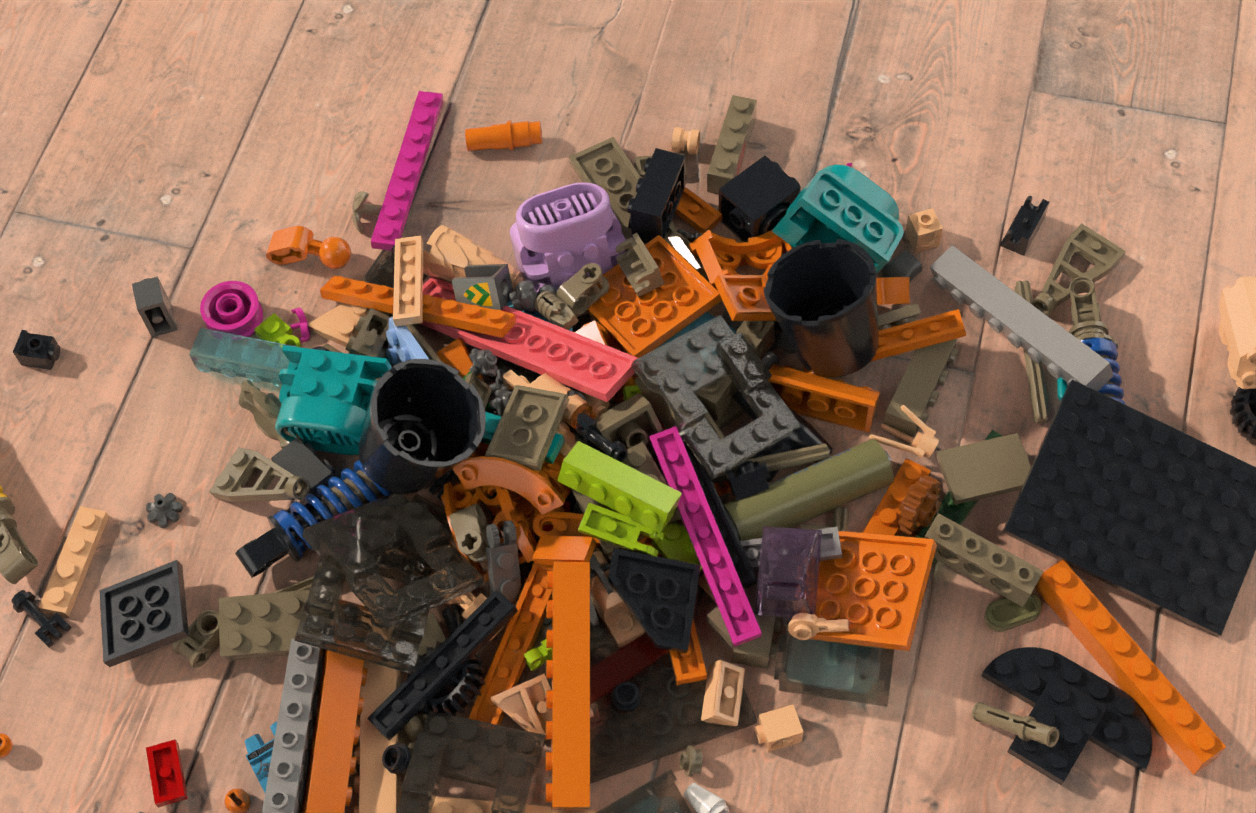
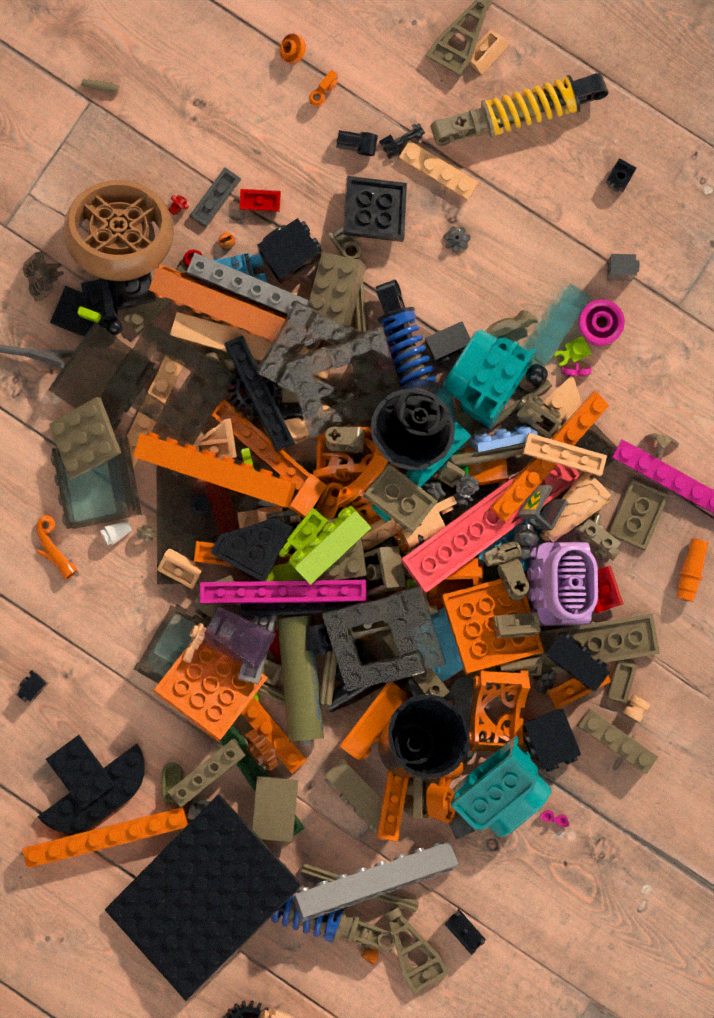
camera: 105 degrees right, 25 degrees up
(54, 668) = (362, 143): none -> black piece
(228, 701) = (289, 250): none -> black brick
(240, 468) = (463, 294): dark tan plate -> none
(297, 242) = (627, 409): orange beam -> none
(396, 758) = (208, 346): black plate -> none
(459, 208) = (638, 514): none -> dark tan tile
(498, 232) = (599, 540): none -> dark tan brick
(503, 561) = (315, 454): dark grey hinge -> none
(587, 434) = (385, 538): black hinge -> none
(744, 297) = (459, 689): orange tile -> none
(779, 728) = (146, 596): light nougat brick -> none
(921, 445) = (313, 776): light nougat plant -> none
(923, 230) = (486, 853): light nougat brick -> none
(1025, 727) = (84, 747): dark tan pin -> none
(1033, 557) = (196, 807): none -> dark grey plate
(1106, 312) = (370, 955): none -> orange hinge

